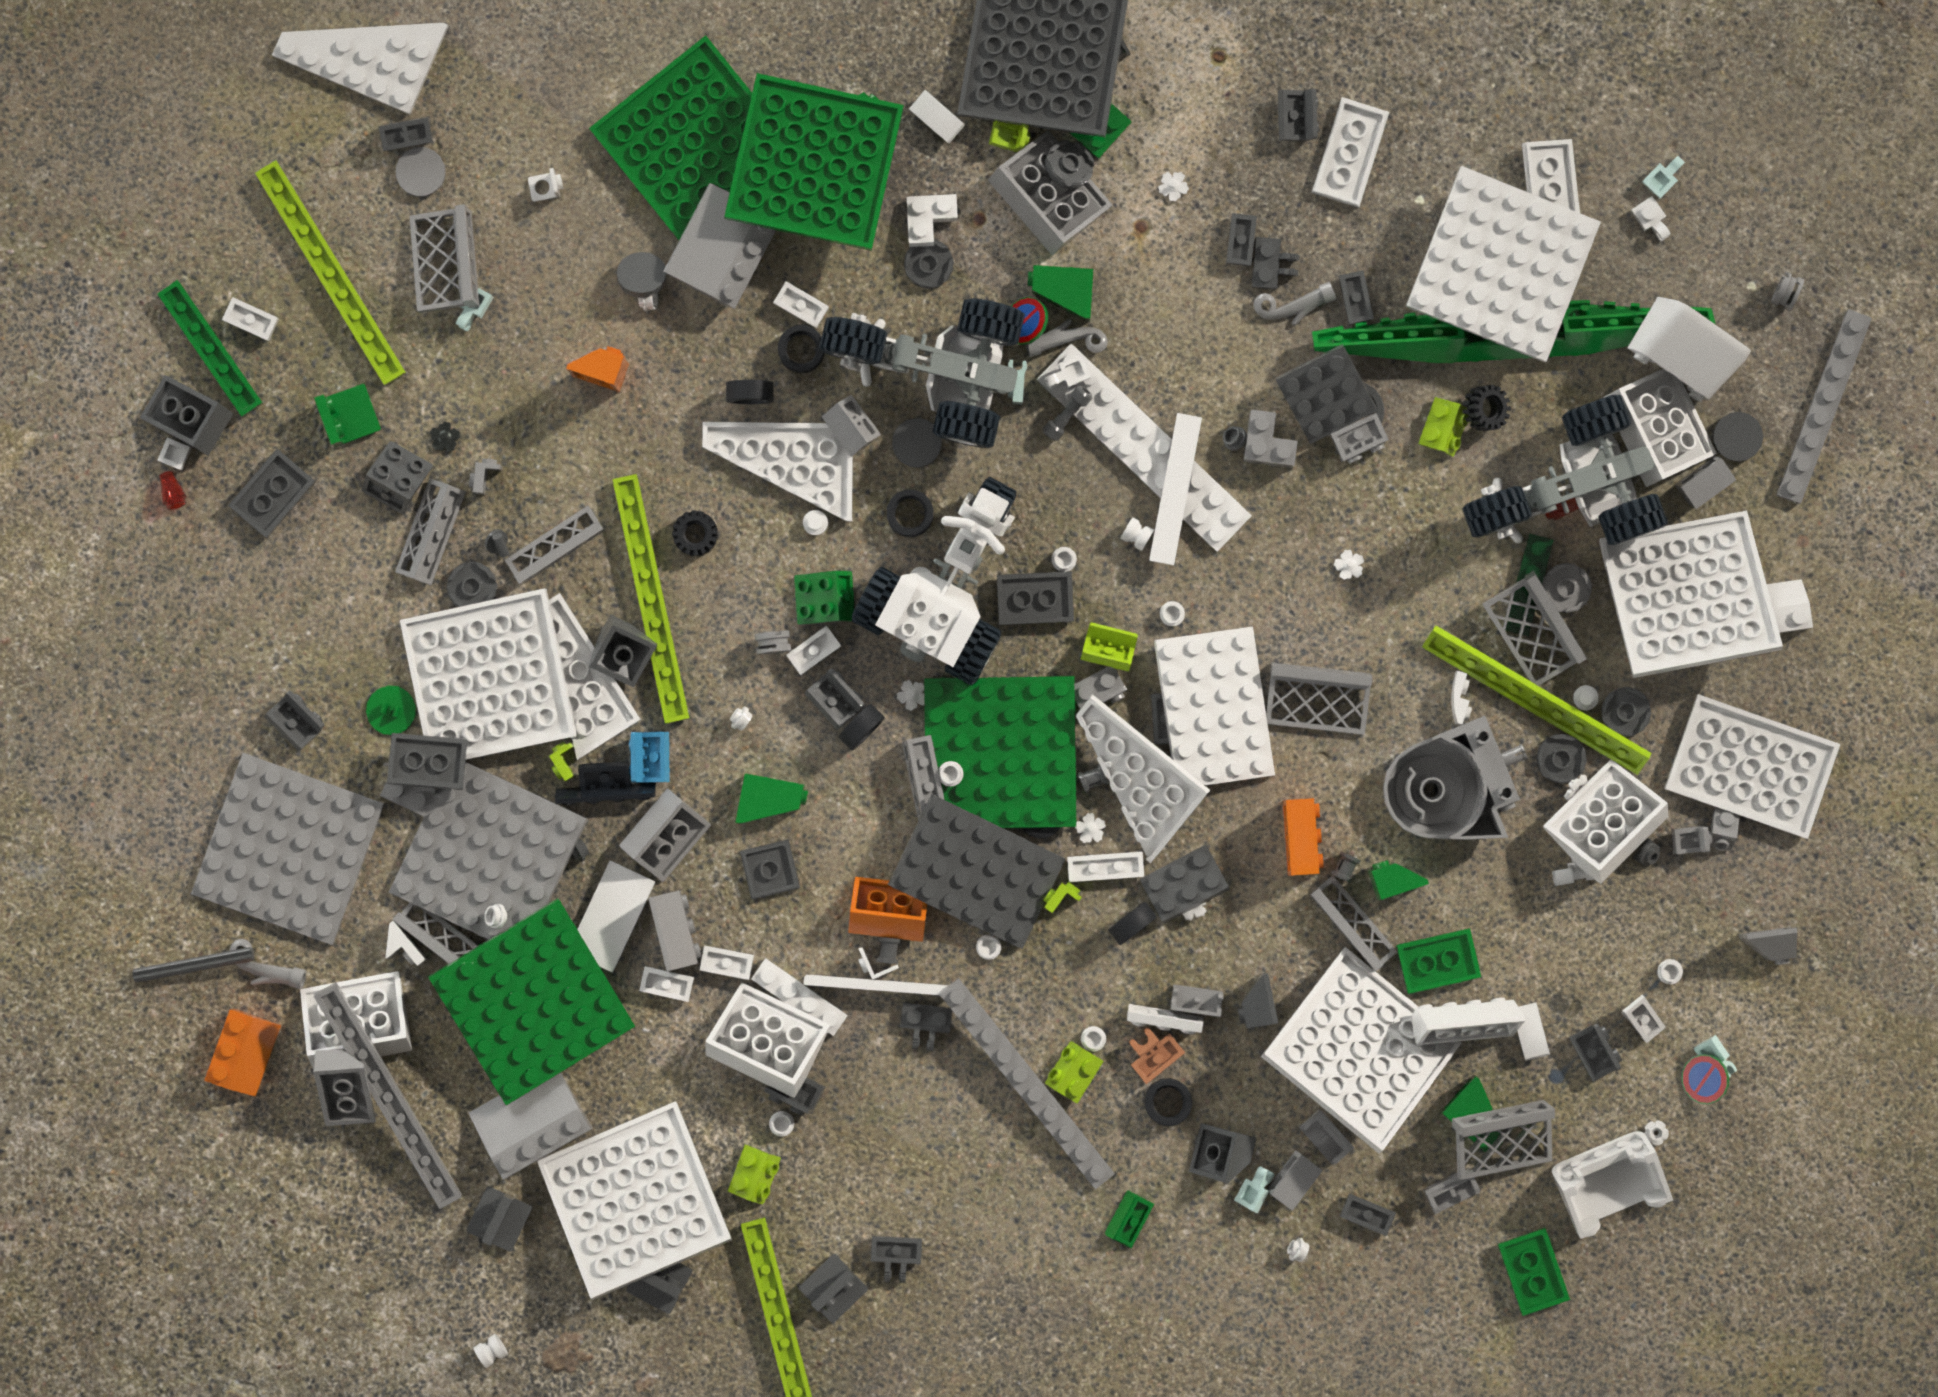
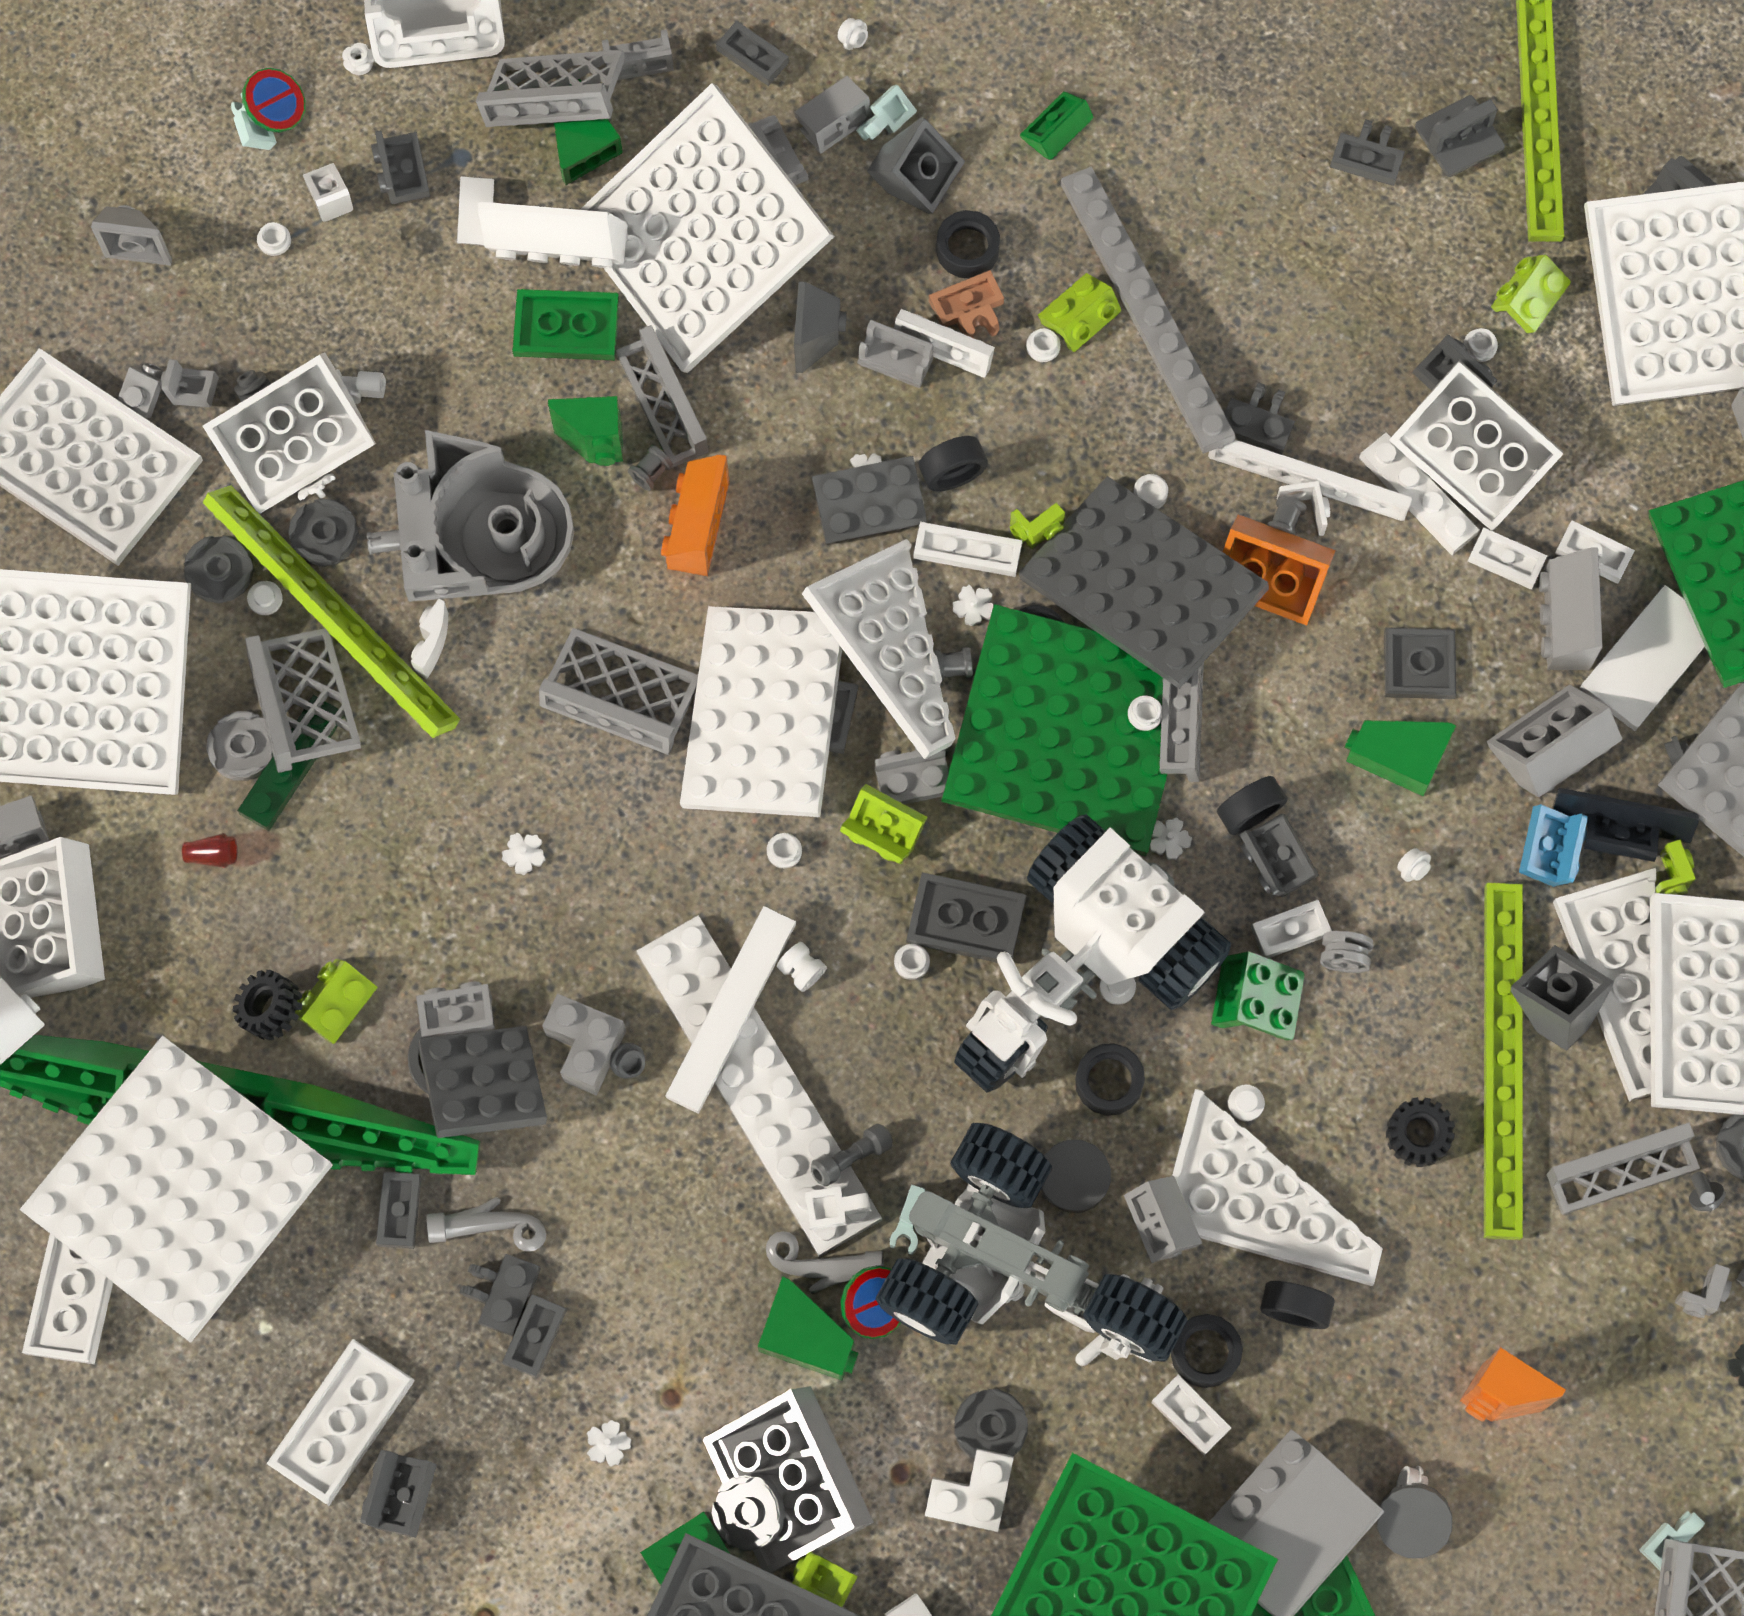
camera: 165 degrees left, 15 degrees down
(1596, 475) = (148, 859): piece -> none

